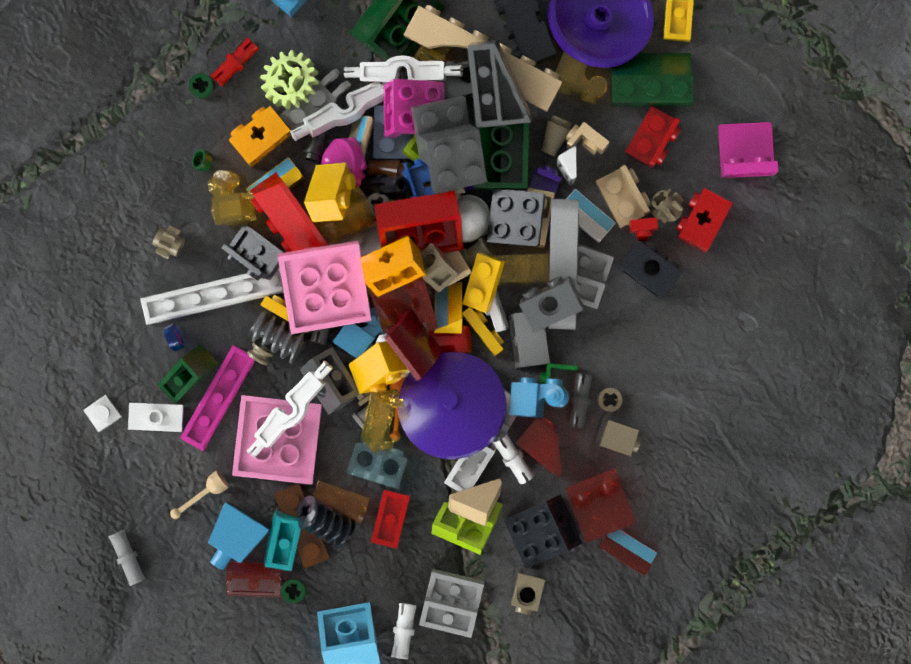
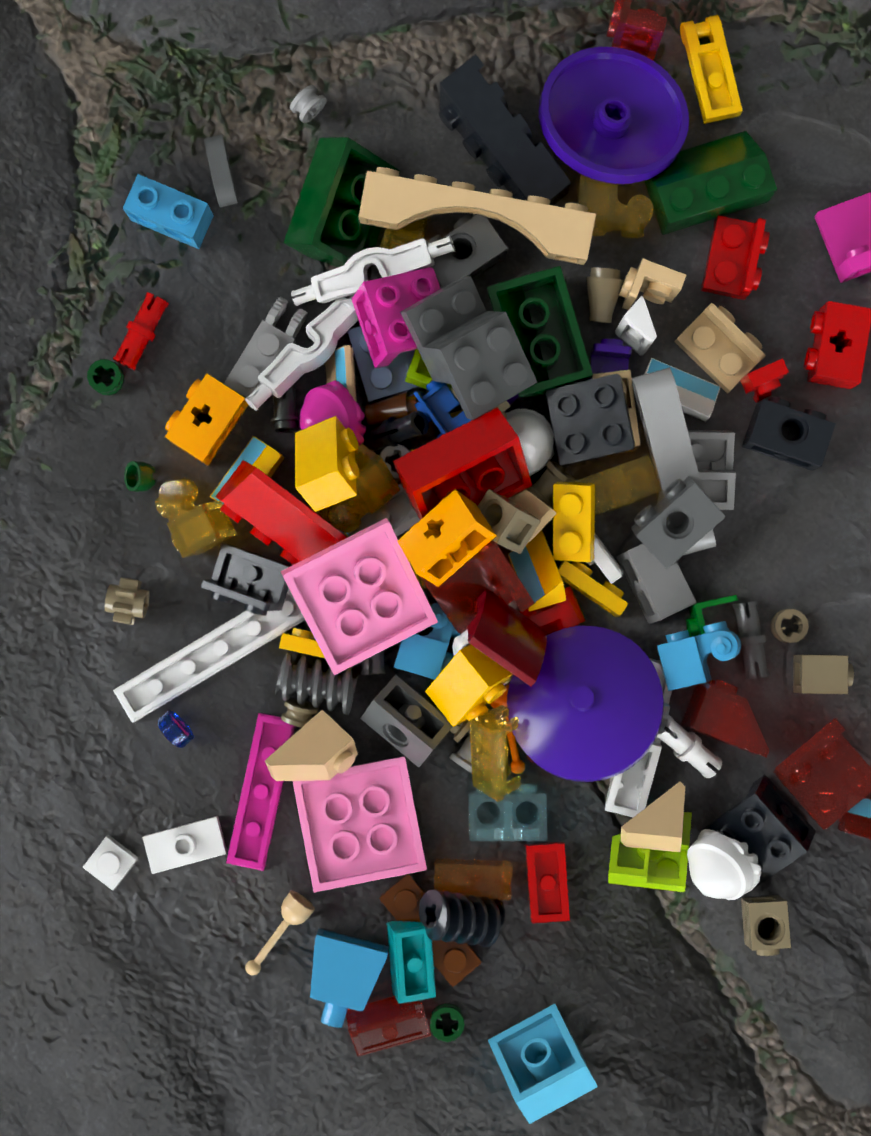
camera: 25 degrees left, 0 degrees up
(127, 557) = (205, 1050): light grey pin -> none
(187, 373) = (209, 772): dark green slope -> none
(261, 382) = (313, 752): none -> tan slope
(299, 83) = (237, 329): yellowish green gear -> none
(299, 399) = (373, 762): white piece -> none
(403, 631) = (614, 1029): white pin -> none
(451, 603) = (666, 969): light grey slope -> none
(494, 87) = (508, 248): dark grey wedge -> none
(509, 543) = (722, 866): none -> white hair
(667, 206) = (784, 341): dark tan gear -> none

